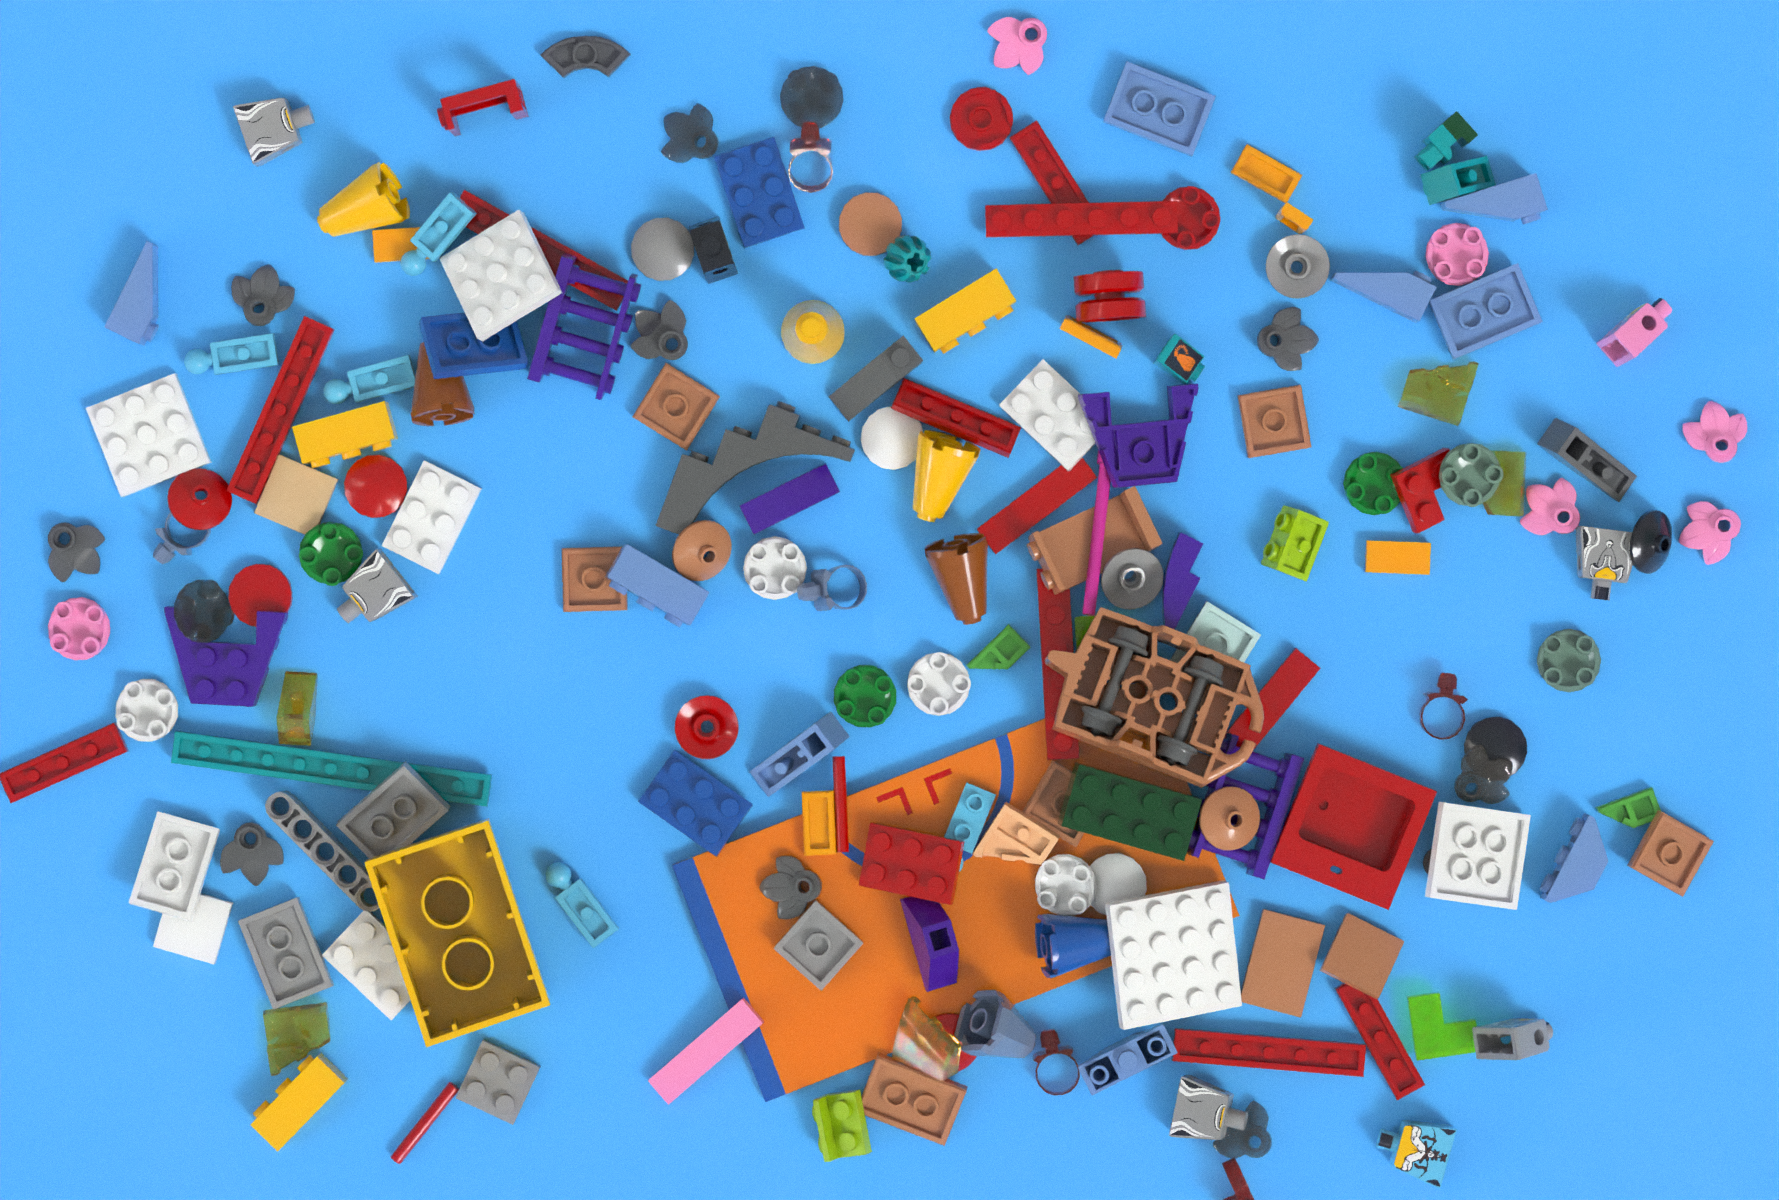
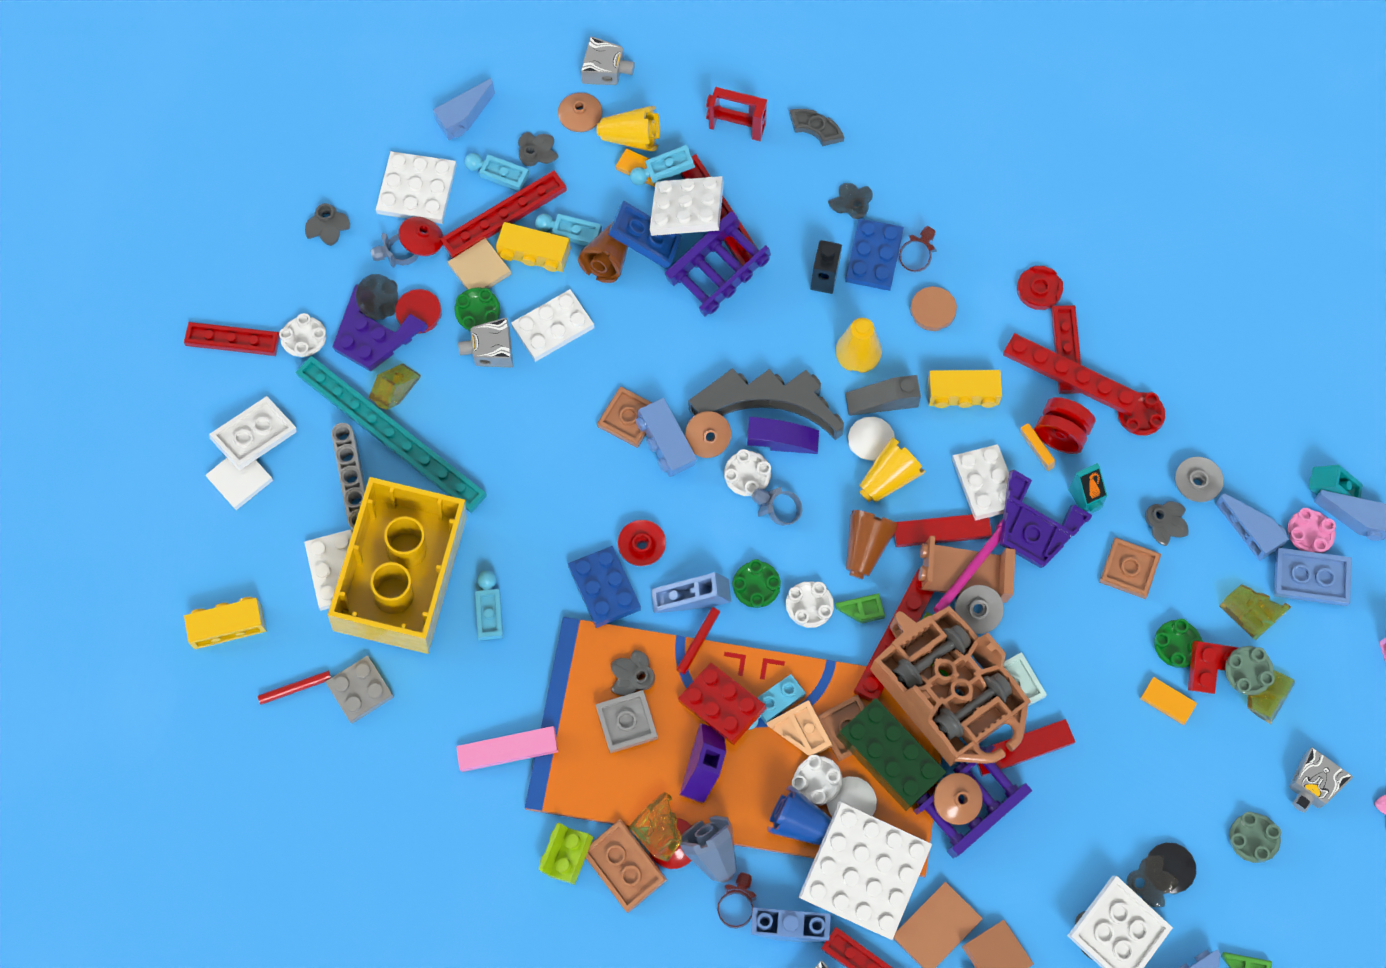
camera: 30 degrees right, 20 degrees down
(78, 628) = (297, 268): bright pink dish -> none
(251, 858) = (303, 459): dark grey plate -> none
(286, 953) = (283, 527): light grey plate -> none
(295, 1032) = (252, 580): clear yellow slope -> none
(297, 211) = (583, 119): none -> nougat dish
(375, 486) = (530, 288): red dish -> none
(393, 813) = (416, 470): light grey plate -> none
(658, 329) = (761, 297): dark grey plate -> none
(662, 249) = (794, 253): light grey dish -> none
(676, 406) = (745, 345): nougat tile -> none
(811, 96) = (942, 217): clear smoke dish -> none
(818, 822) = (676, 644): light orange tile -> none
(907, 258) = (939, 336): teal piece -> none
(956, 417) = (919, 446): red tile -> none
(1015, 47) = (1086, 259): bright pink plate -> none
(1159, 109) = (1158, 340): medium blue plate -> none
(1178, 580) = (1011, 627): dark purple slope -> none
(1266, 173) = (1207, 416): light orange tile -> none
(1293, 218) = (1214, 444): light orange tile -> none
(1294, 542) = (1102, 650): lime bracket -> none
(1355, 821) = (1045, 855): red piece -> none
(1442, 138) = (1343, 451): teal hips -> none
(1446, 684) = (1155, 806): clear red piece -> none
(1546, 507) = (1292, 726): bright pink plate -> none
(1586, 459) = (1336, 708): dark grey slope -> none
(1650, 541) = (1356, 787): black dish -> none

